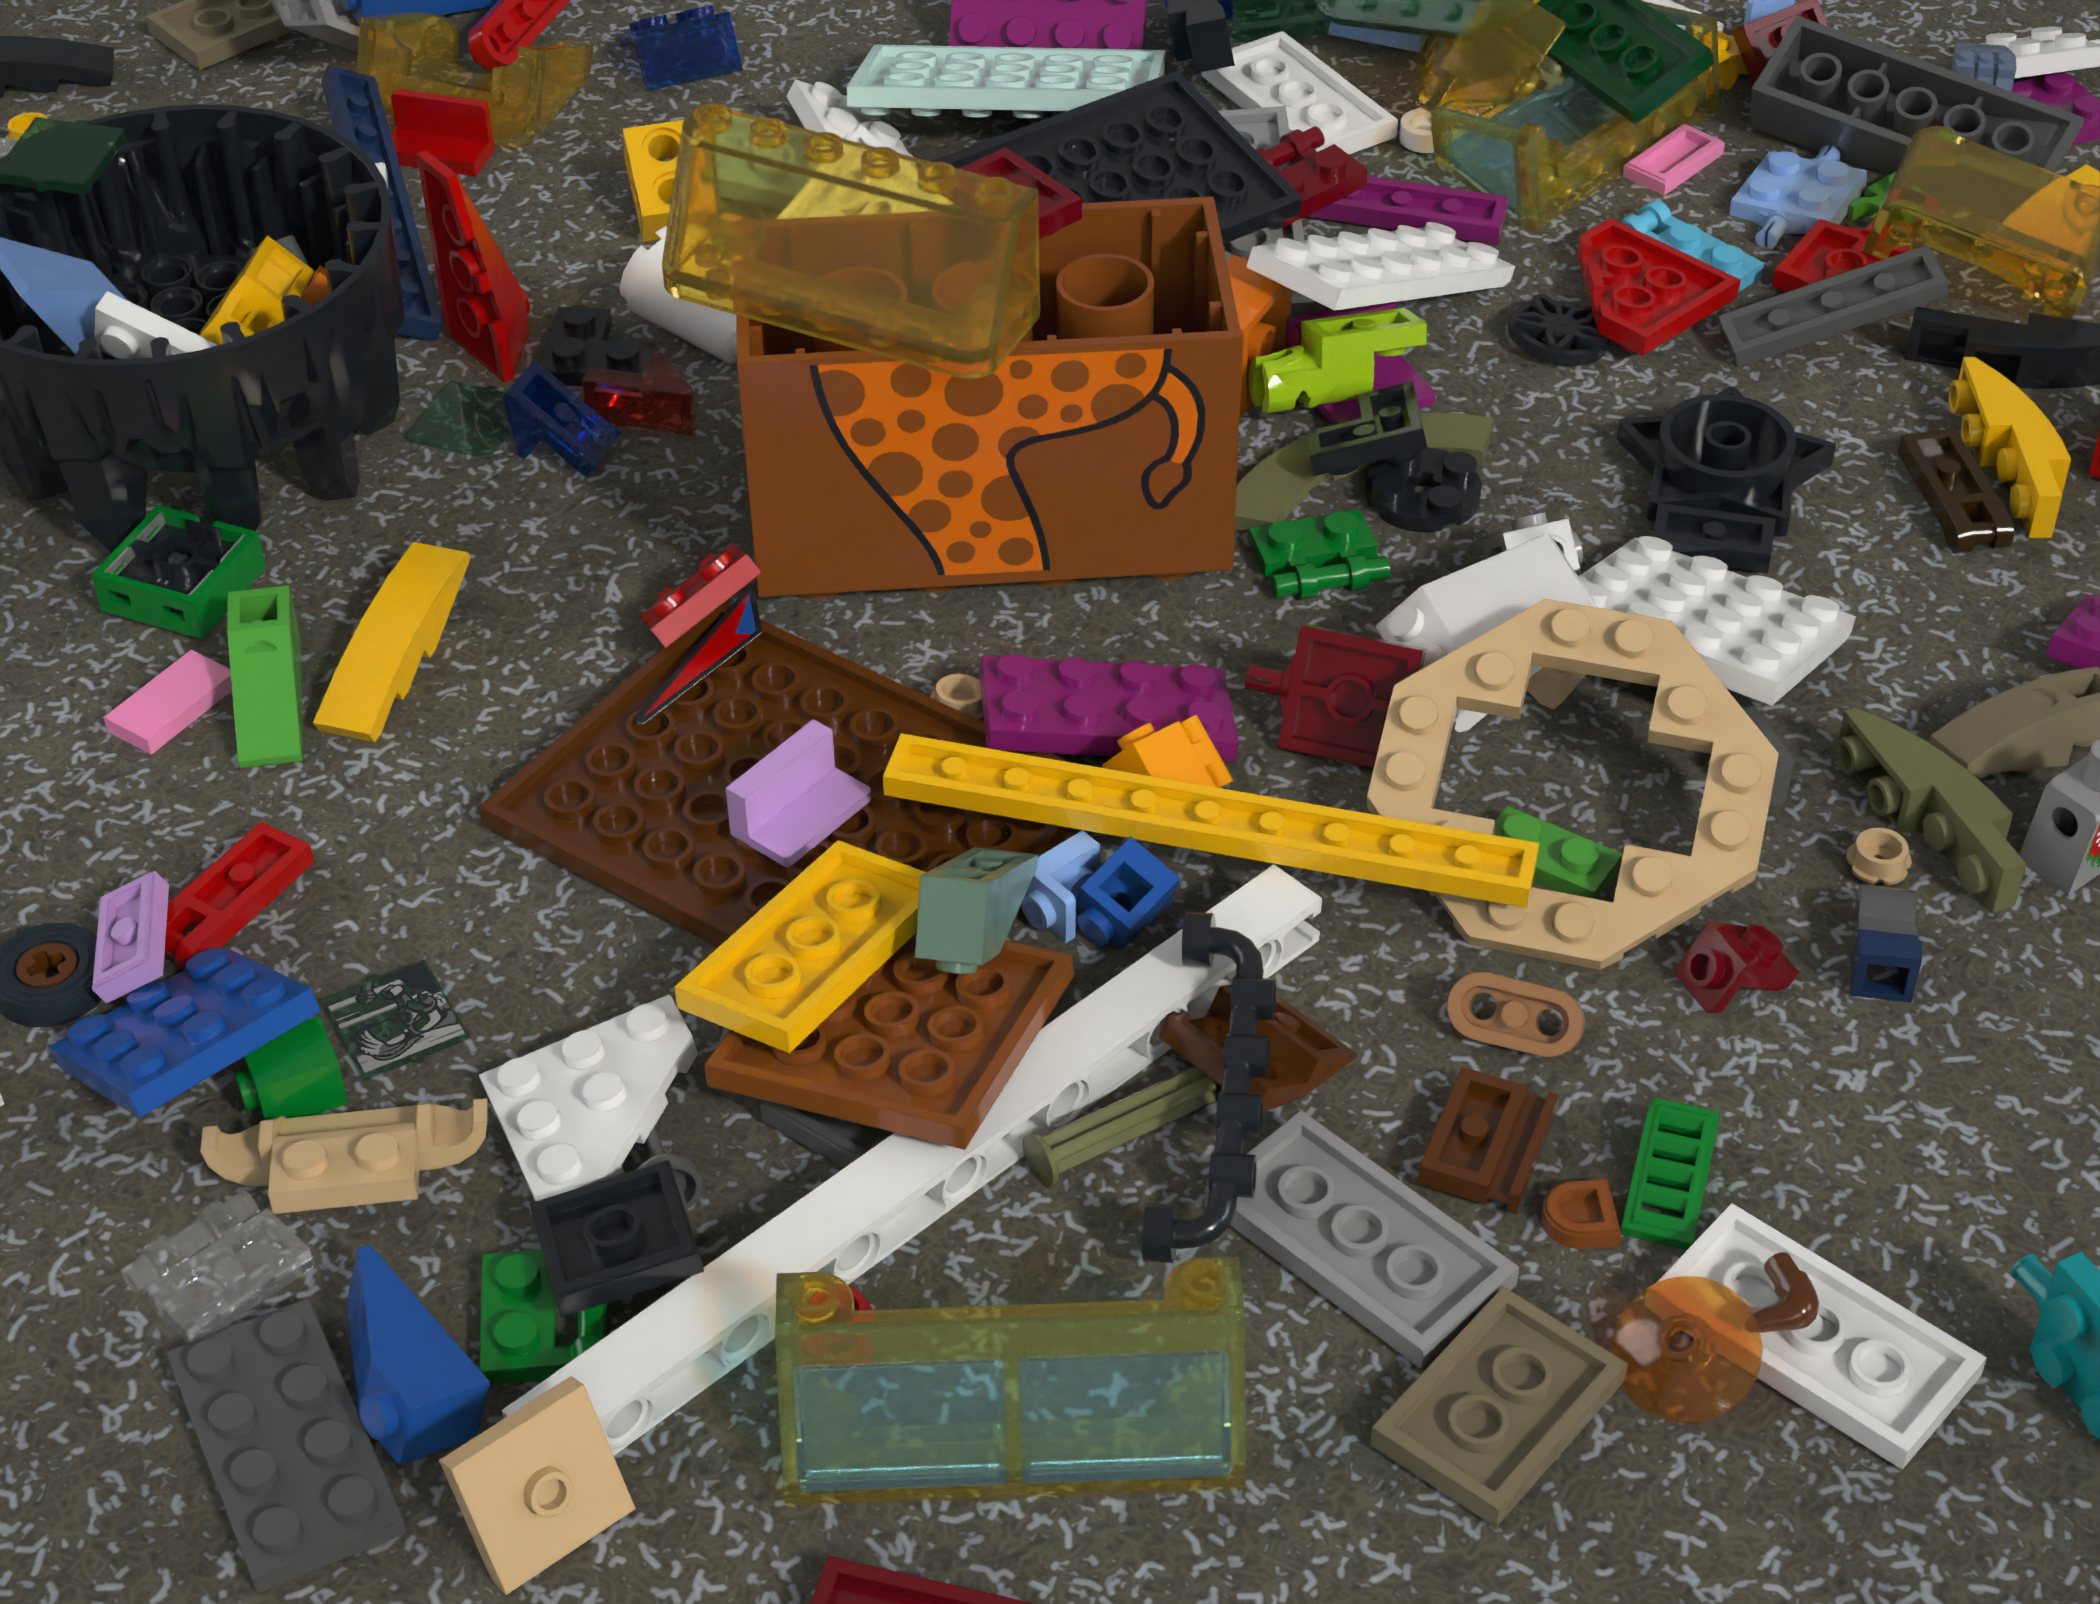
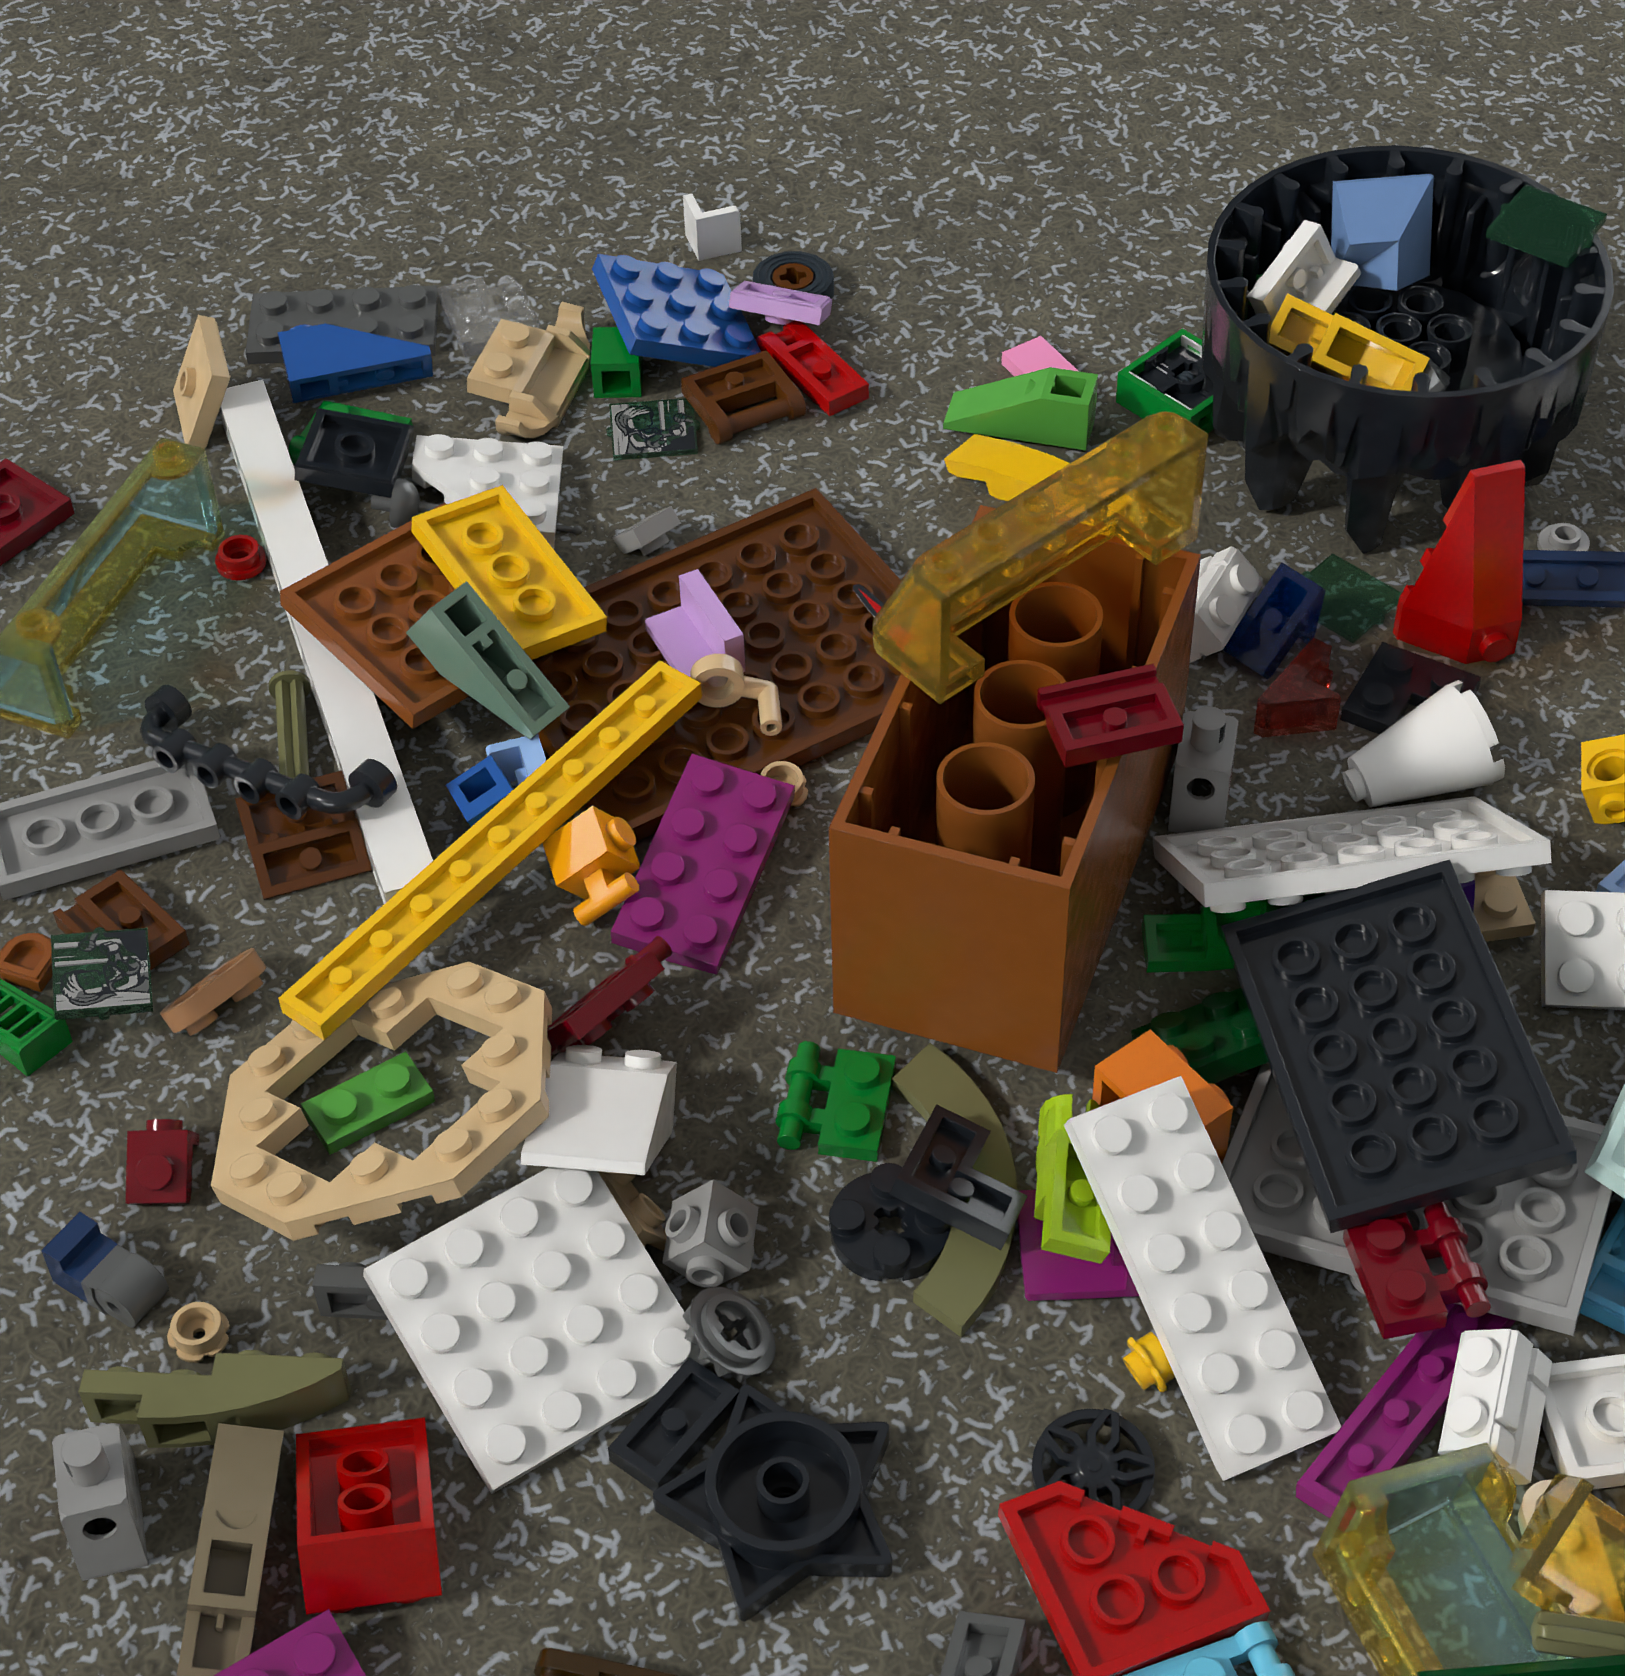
camera: 115 degrees right, 5 degrees up
(297, 947) = (740, 385): none -> reddish brown plate
(552, 465) = (1223, 596): none -> white brick
(613, 932) = (648, 533): none -> light grey plate
(863, 741) = (725, 683): none -> tan plate
(1381, 141) = (1497, 1398): none -> white brick
(1448, 321) = (1148, 1362): none -> yellow plate
(1576, 1093) = (101, 973): none -> piece
(1615, 522) = (721, 1310): none -> dark grey gear
(1946, 657) = (366, 1516): none -> red slope

